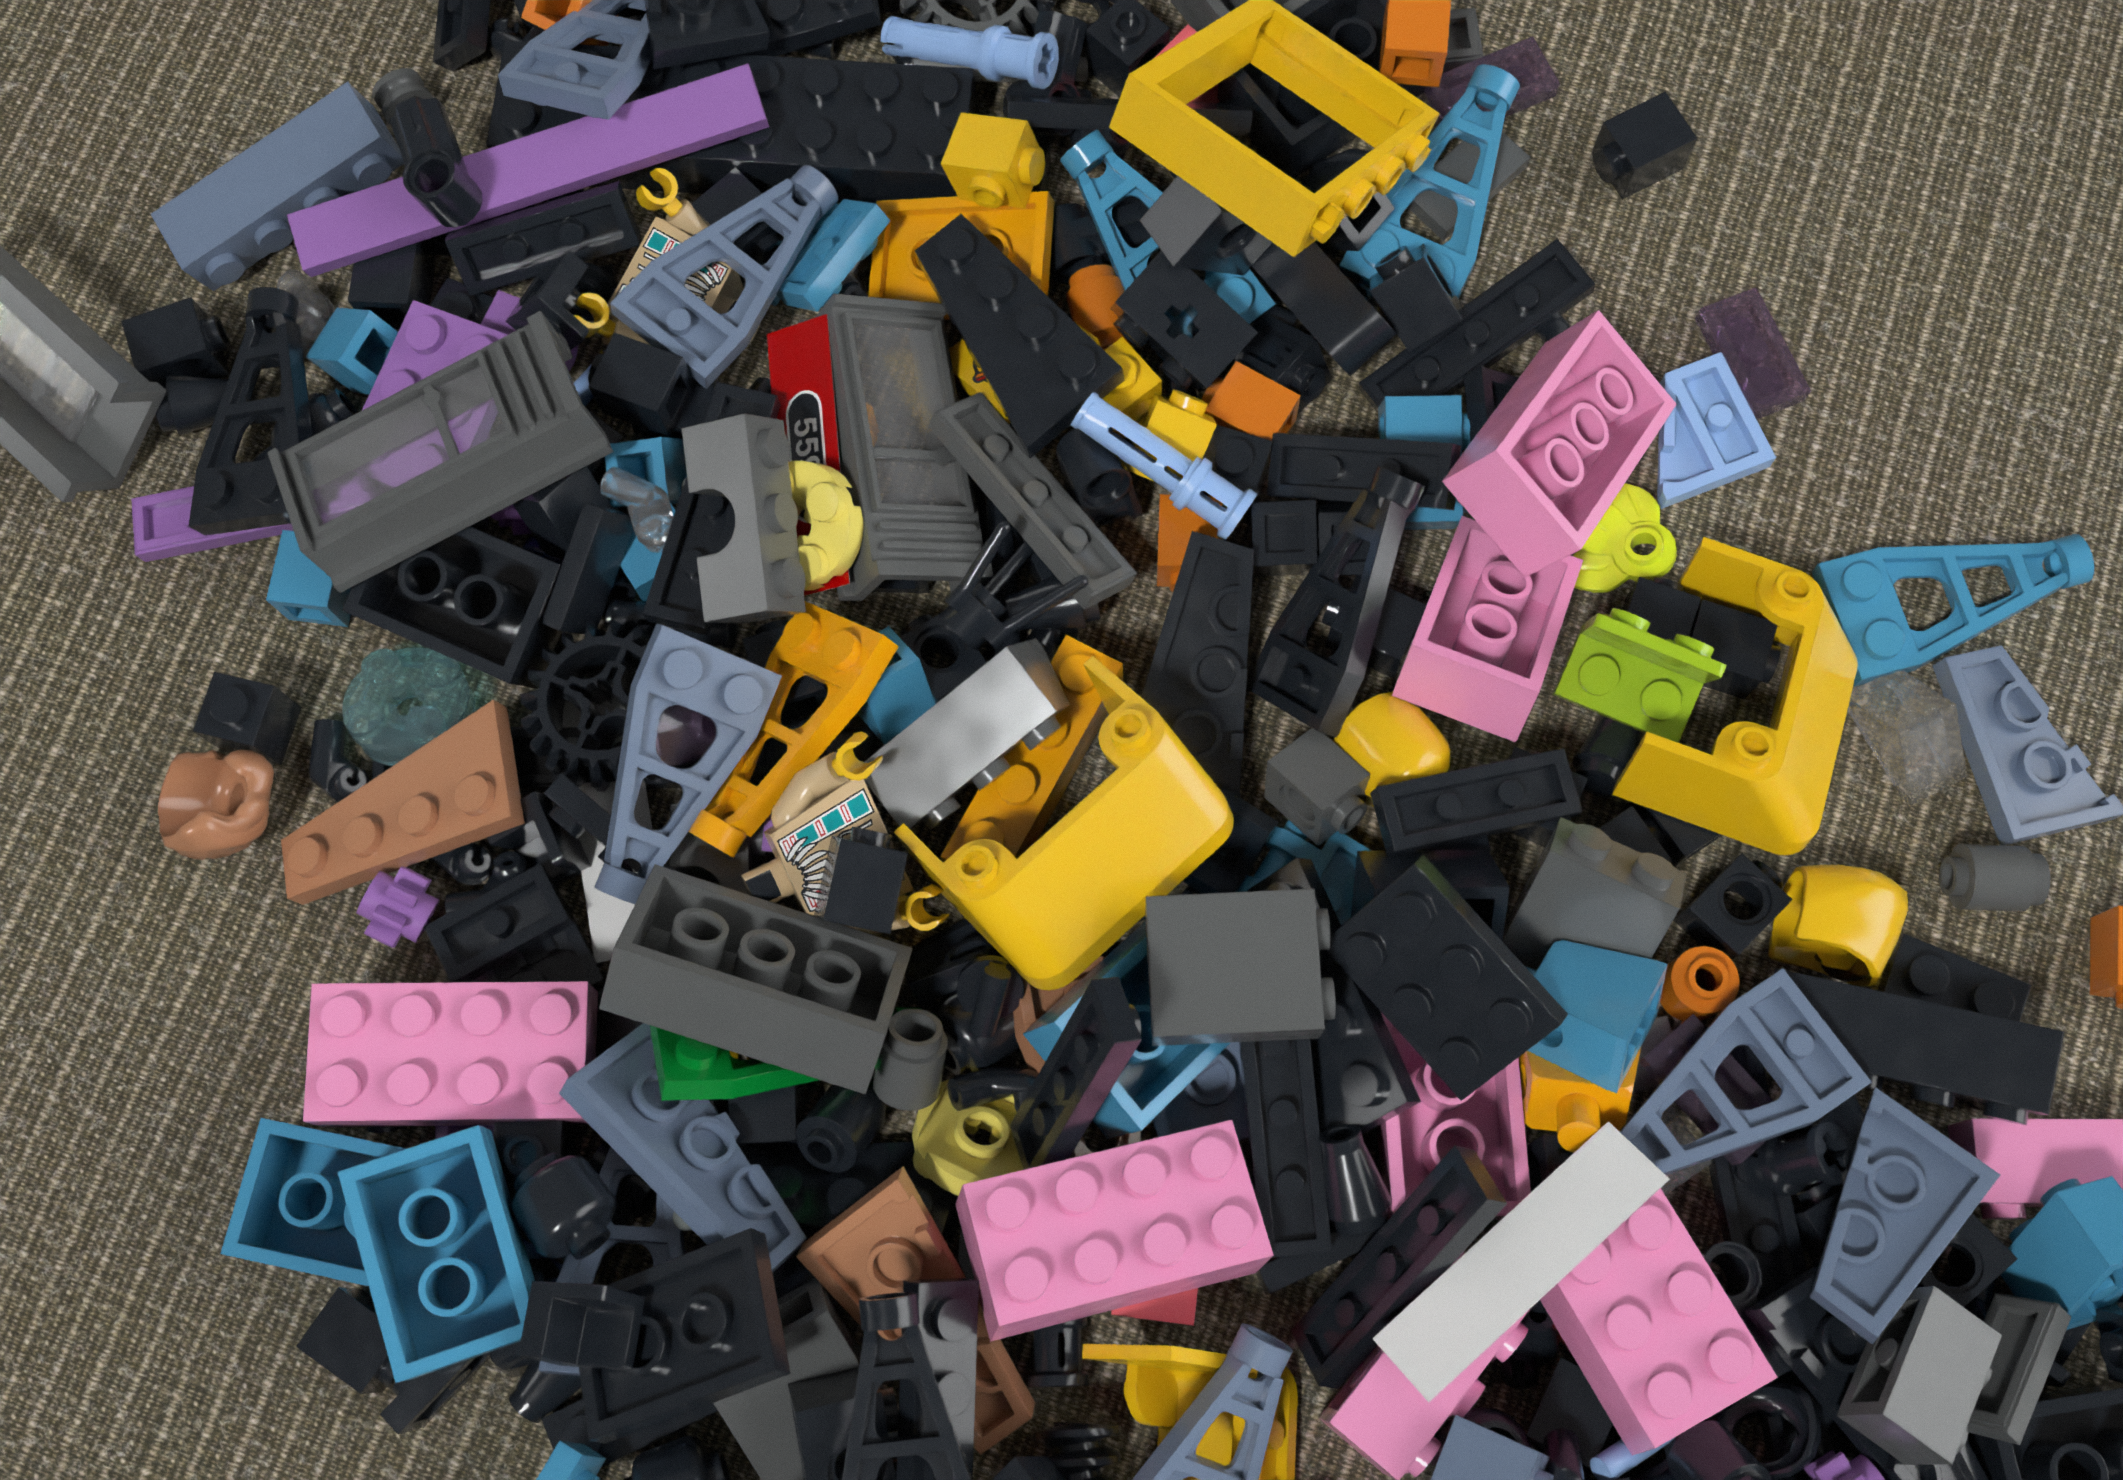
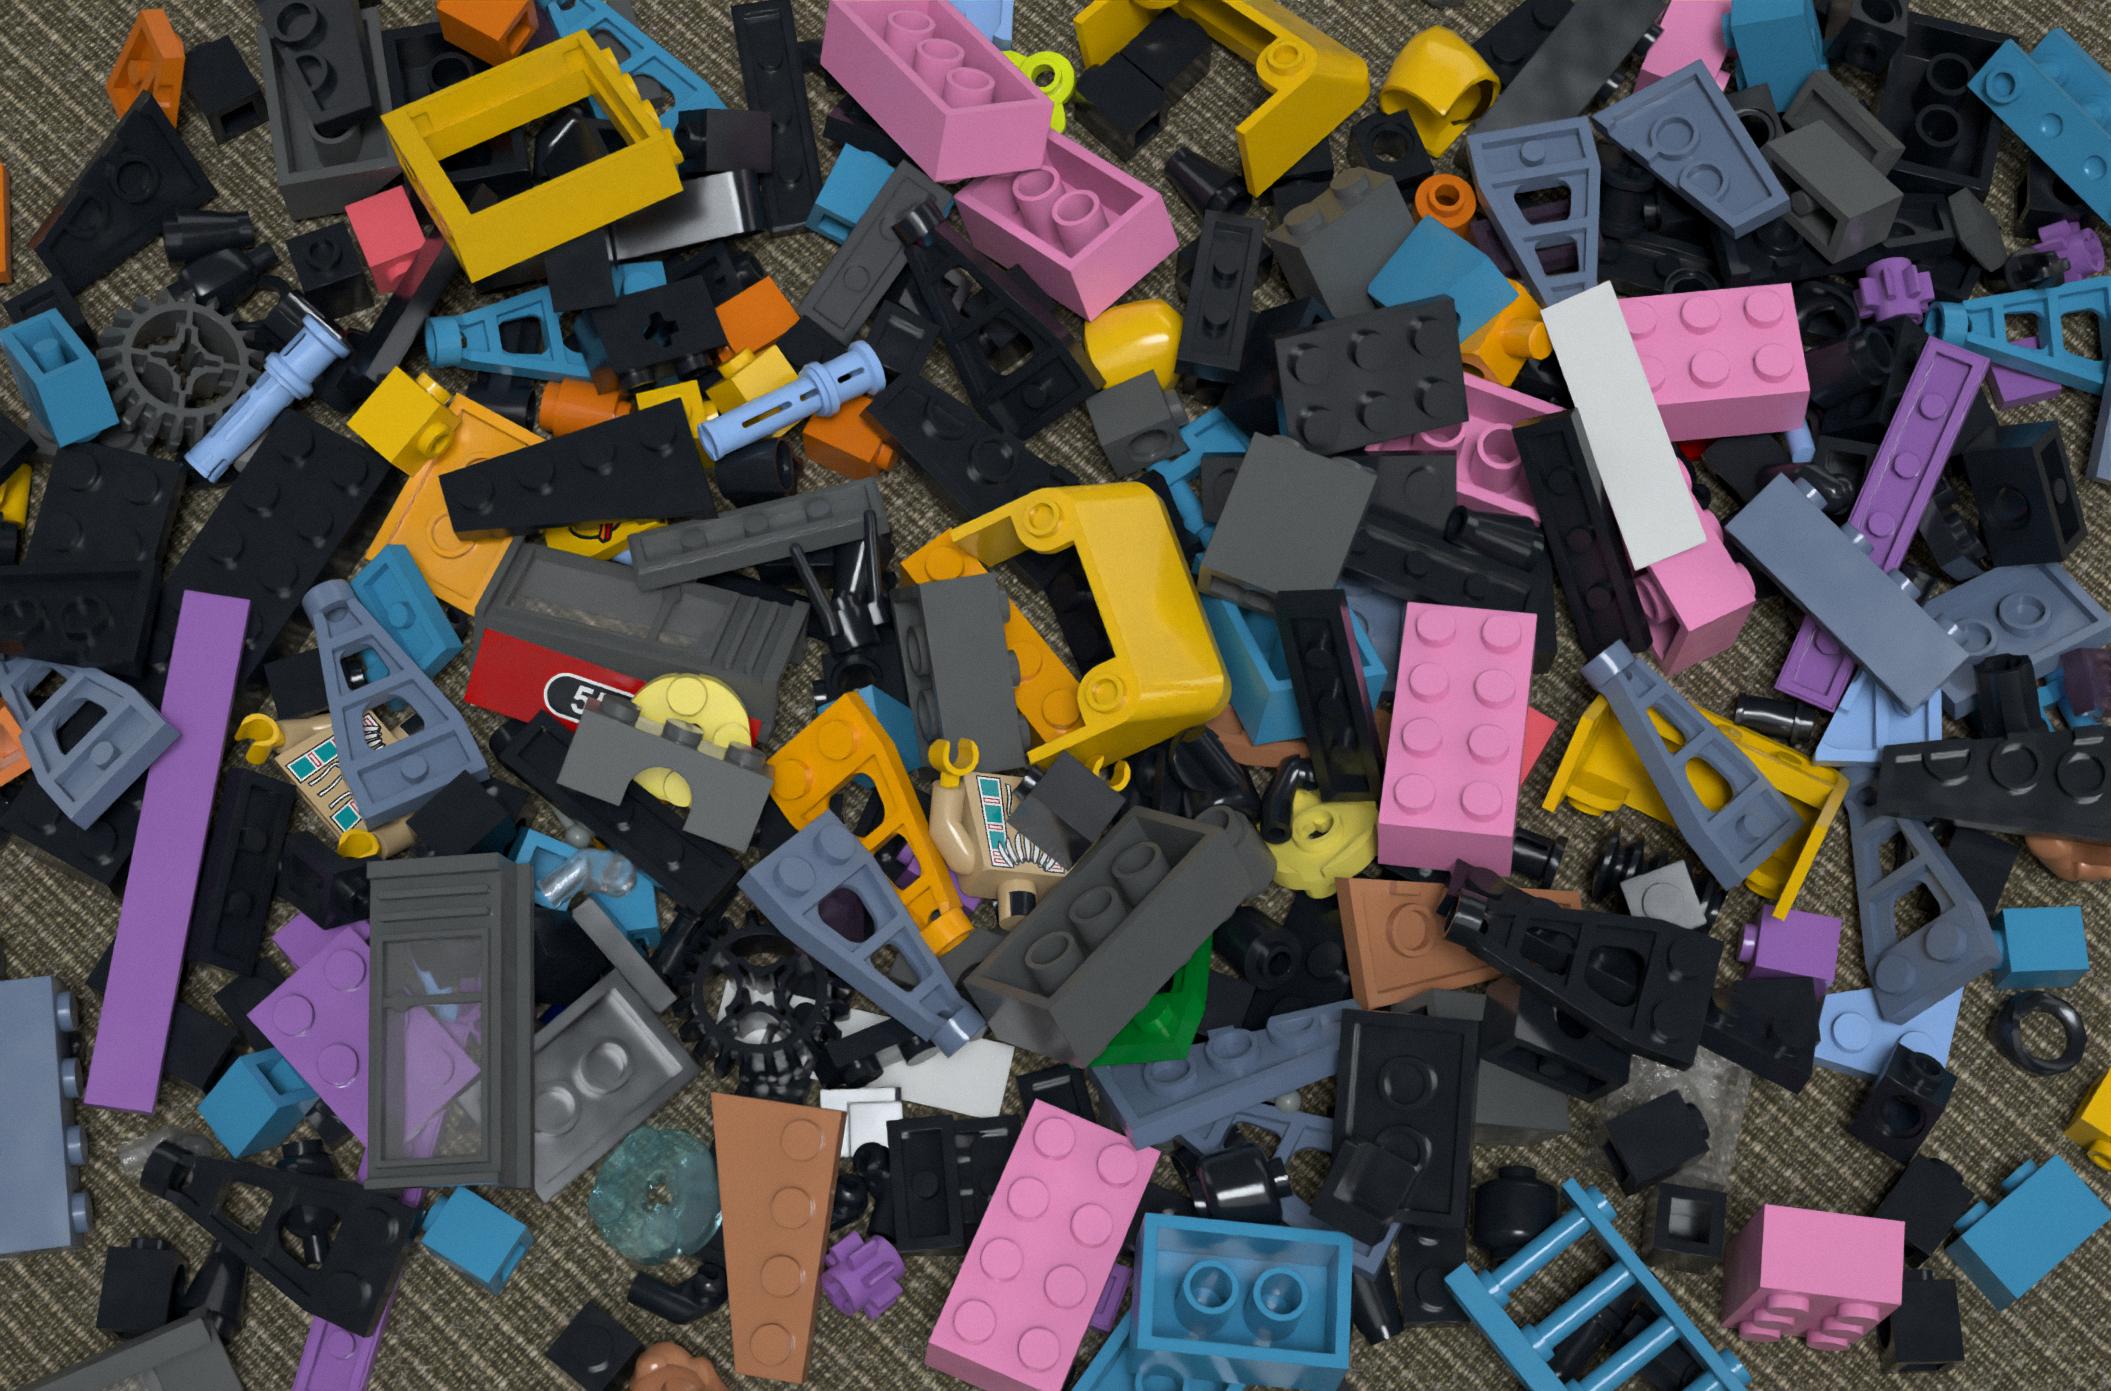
camera: 75 degrees left, 5 degrees down
(434, 162) = (121, 921): black piece -> none
(1635, 674) = (1169, 125): lime bracket -> none

